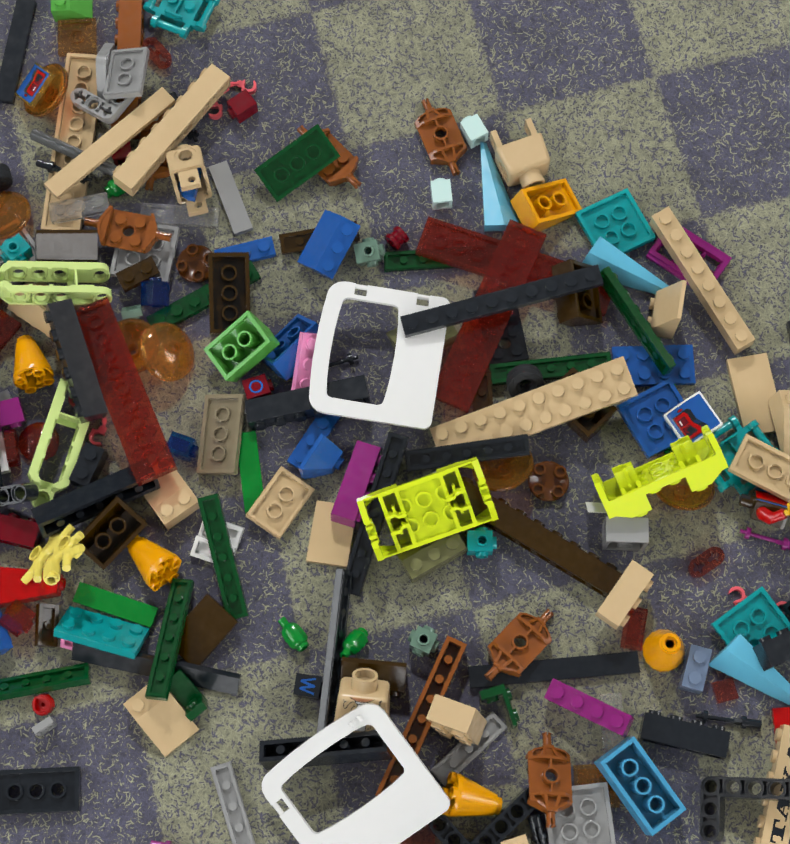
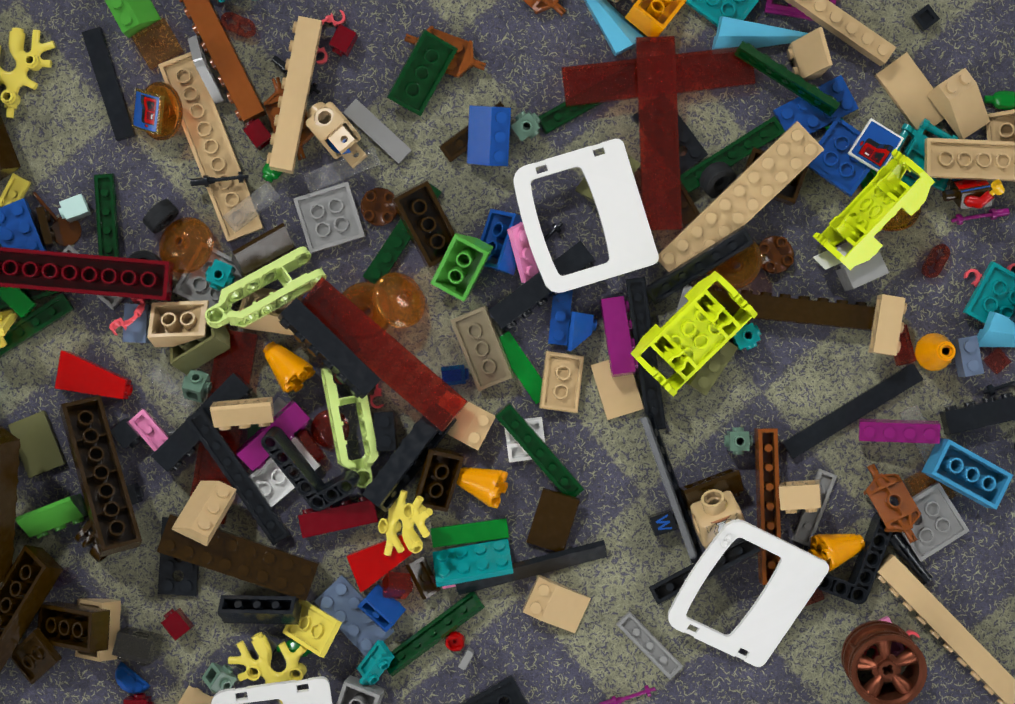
camera: 25 degrees left, 15 degrees up
(66, 149) = (217, 157): dark grey axle -> none
(109, 106) = (228, 99): light grey beam -> none
(109, 143) = (247, 134): tan tile -> none
(114, 223) = (290, 207): dark orange plate -> none
(126, 73) = (226, 62): light grey tile -> none
(132, 312) = (348, 277): sand green plate -> none
(137, 273) = (336, 242): dark brown plate -> none
(155, 293) = (360, 252): clear blue brick -> none
(169, 639) = (532, 541): dark green tile -> none
(188, 695) = (570, 577): dark green bracket -> none
(257, 387) = (492, 293): dark red brick -> none
(258, 249) = (420, 171): blue plate -> none
(293, 635) = (629, 486): green plant -> none
(354, 642) = (682, 469): green plant -> none
(396, 238) = (542, 99): dark red wheel -> none
(441, 194) = (561, 39): light aqua brick -> none
(491, 695) = (814, 454): dark green bracket -> none
(501, 301) = (669, 119): black plate -> none
(513, 659) = (814, 420): dark orange plate -> none
(581, 307) = (724, 78): dark brown slope -> none

